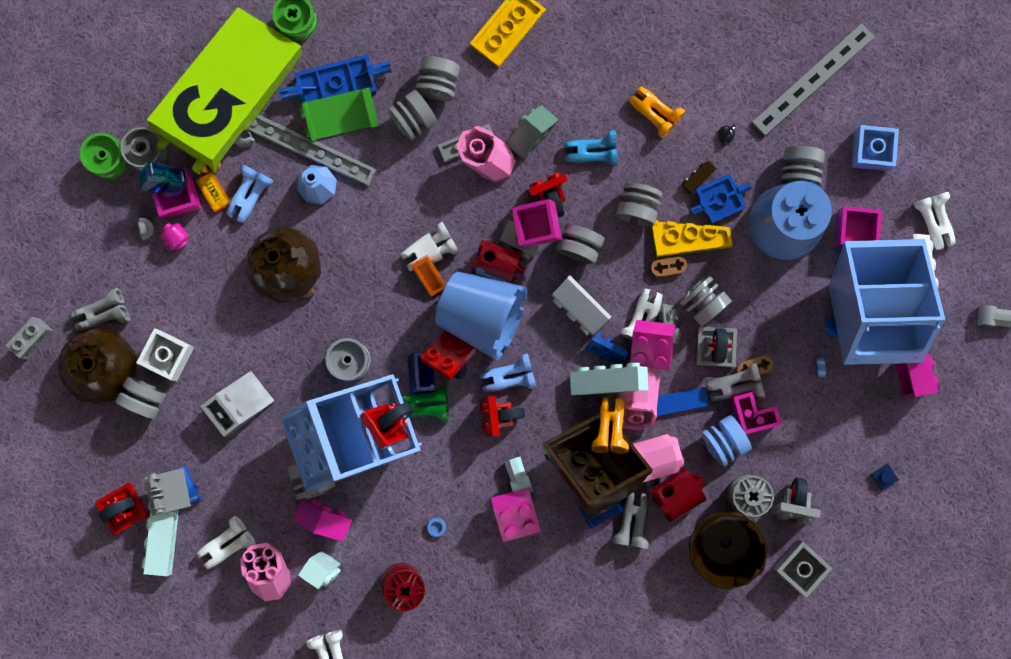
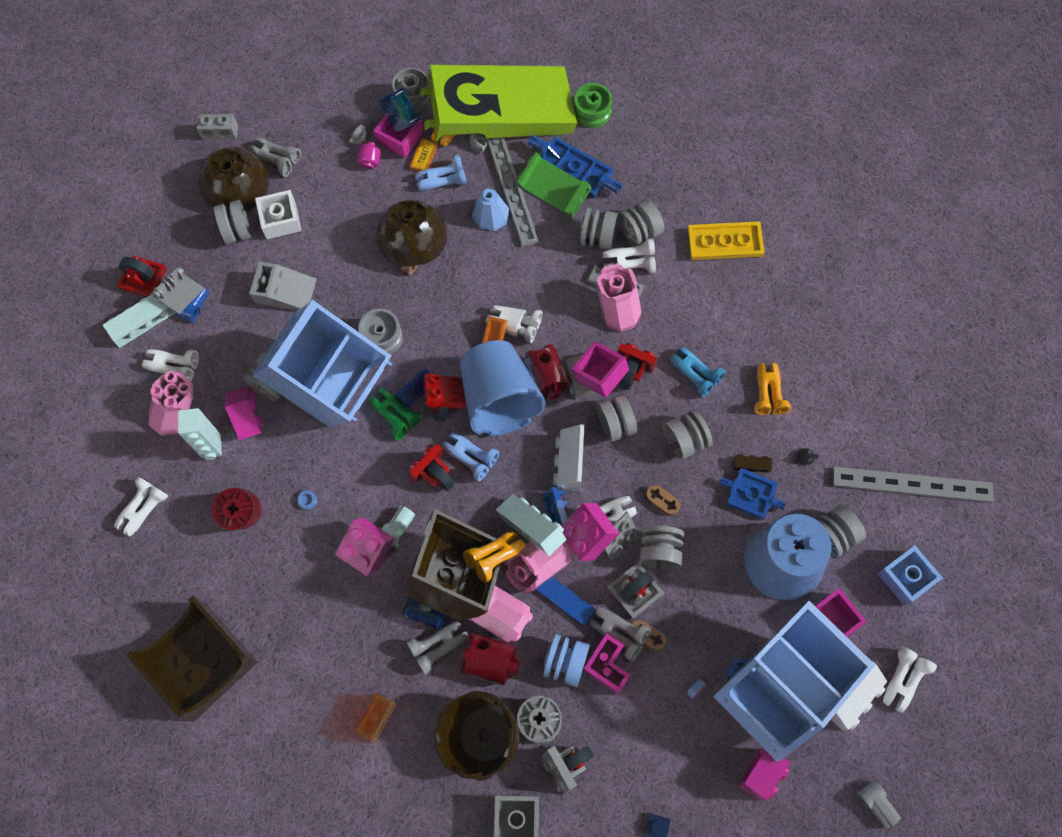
camera: 50 degrees right, 15 degrees down
(93, 153) = (381, 69): bright green wheel -> none
(387, 423) = (348, 378): red plate -> none
(472, 103) = (646, 248): none -> white piece
(531, 131) = (667, 314): sand green brick -> none
(649, 608) = (375, 718): none -> clear orange brick
(687, 238) = (692, 490): yellow wing -> none

